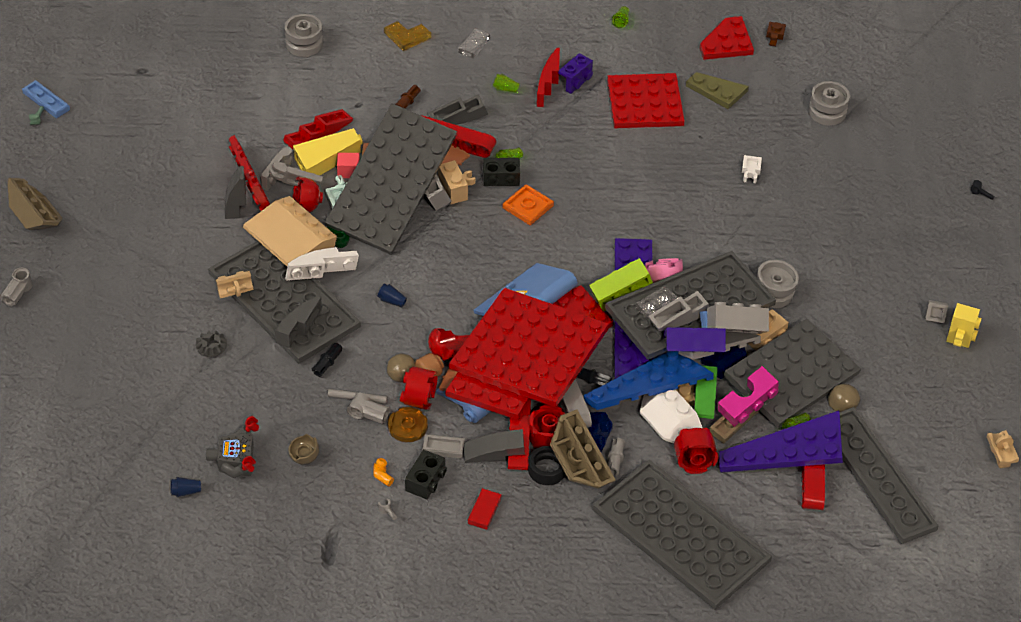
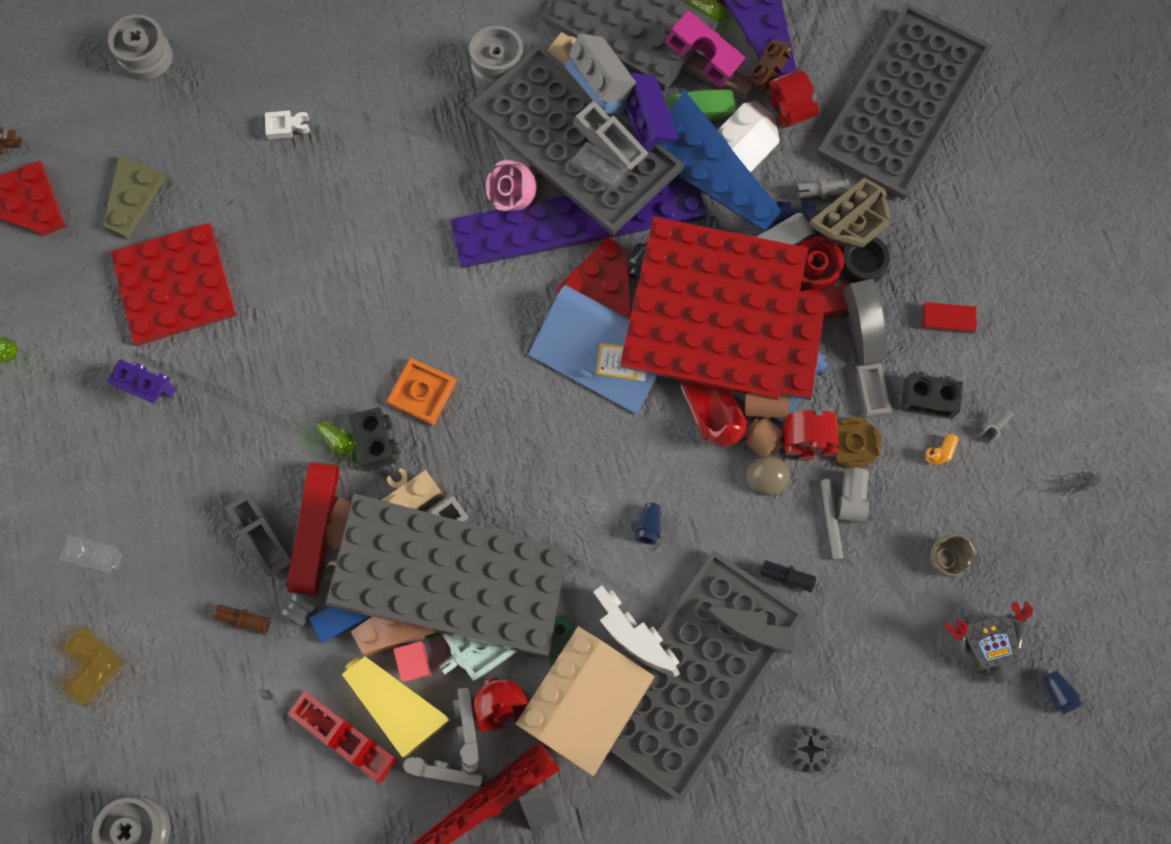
camera: 105 degrees left, 25 degrees up
(234, 284) = (720, 757): tan hips -> none
(505, 83) = (180, 482): clear neon green cone -> none
(549, 76) = (147, 420): red slope -> none
(621, 282) = (566, 223): lime wedge -> none
(734, 443) = (775, 56): none -> reddish brown hinge

